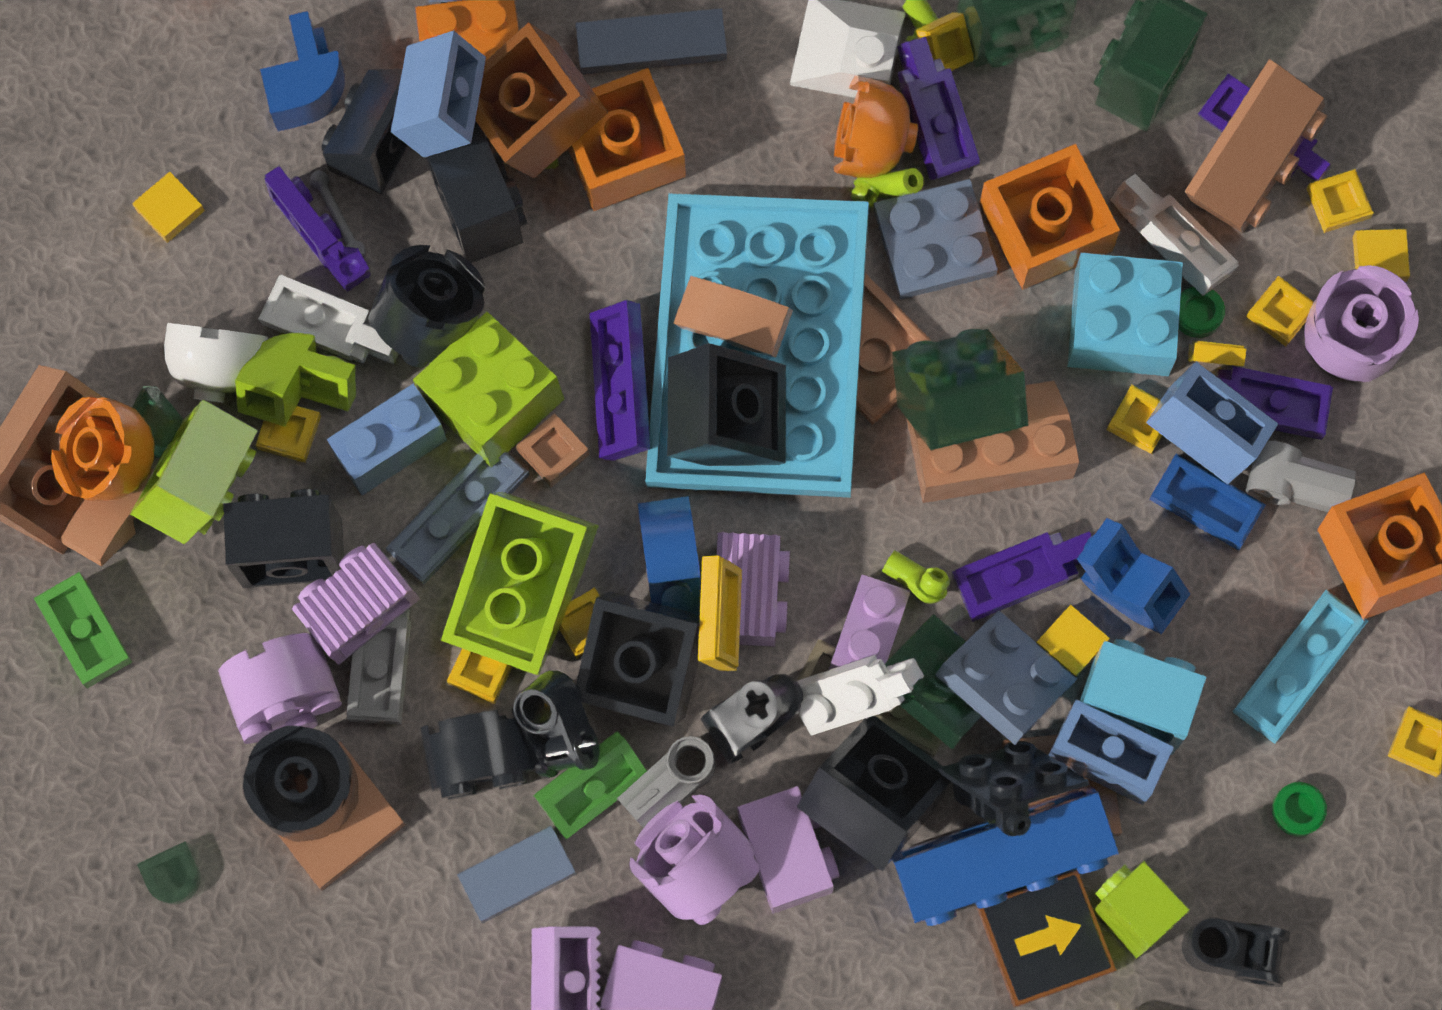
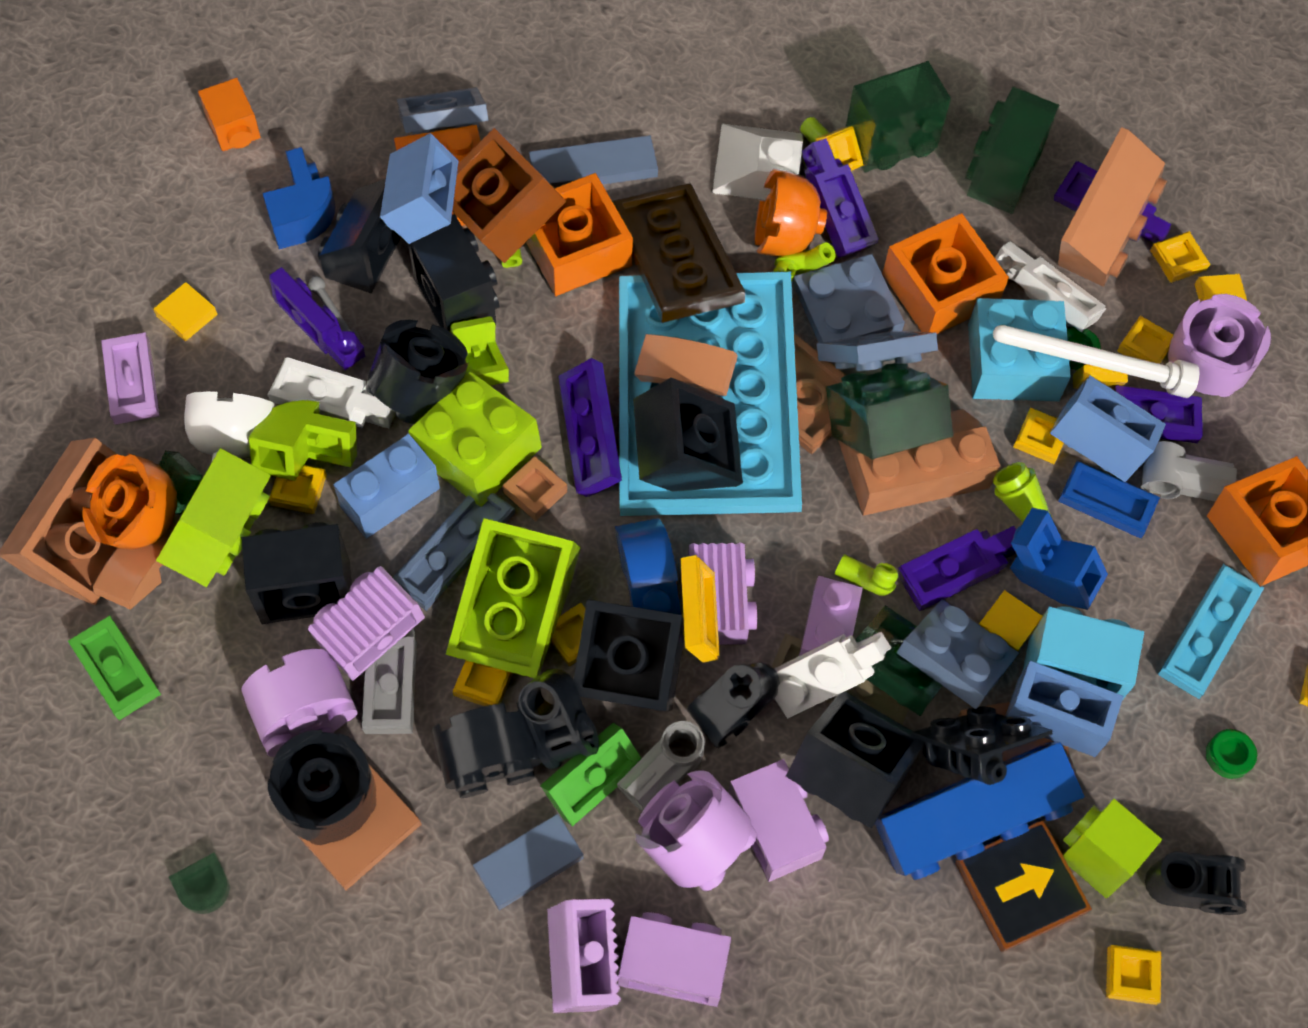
camera: 10 degrees left, 10 degrees down
(104, 288) = (130, 378): none -> lavender plate
(505, 287) = (483, 353): none -> lime bracket
(738, 167) = (679, 253): none -> dark brown tile
(955, 307) = (871, 350): none -> sand blue plate
(1103, 492) = (1019, 489): none -> lime cone
(1303, 364) = (1177, 377): none -> white piece

